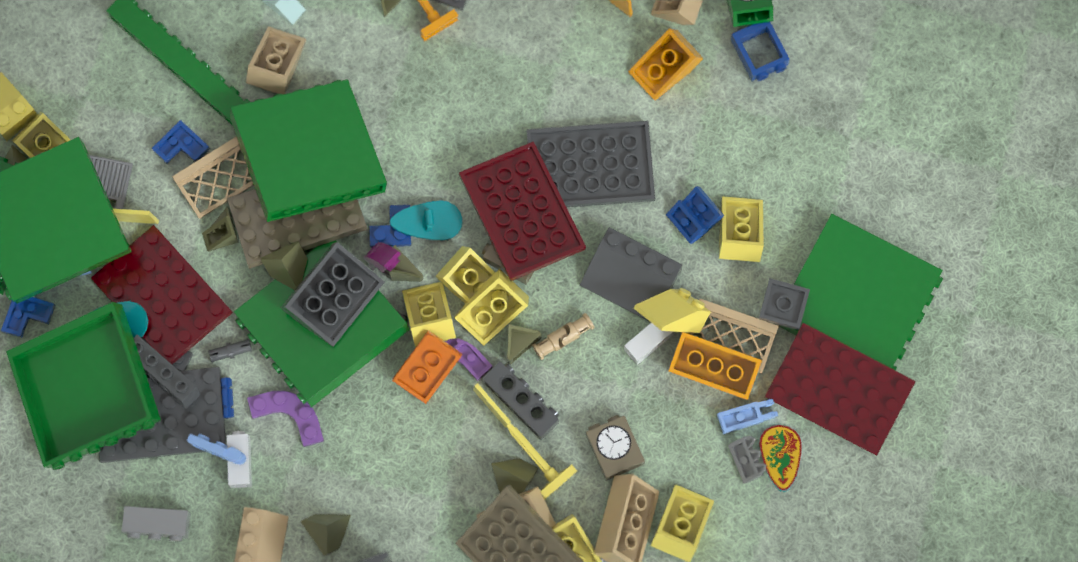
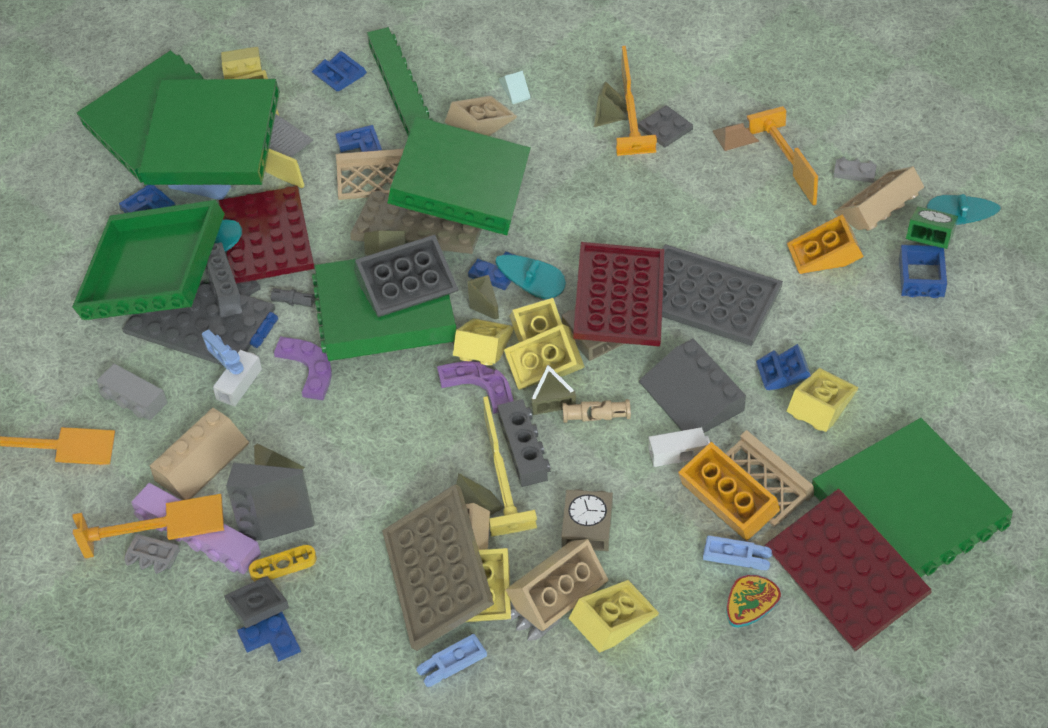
camera: 30 degrees right, 25 degrees down
(103, 66) = (339, 71): none -> blue slope
(220, 233) = (348, 212): olive slope -> none
(382, 257) = (467, 268): magenta slope -> none
(427, 367) = (452, 374): orange tile -> none
(674, 311) = (718, 425): light yellow slope -> none
(747, 459) = (713, 588): light grey plate -> none
(784, 304) = (828, 466): dark grey plate -> none

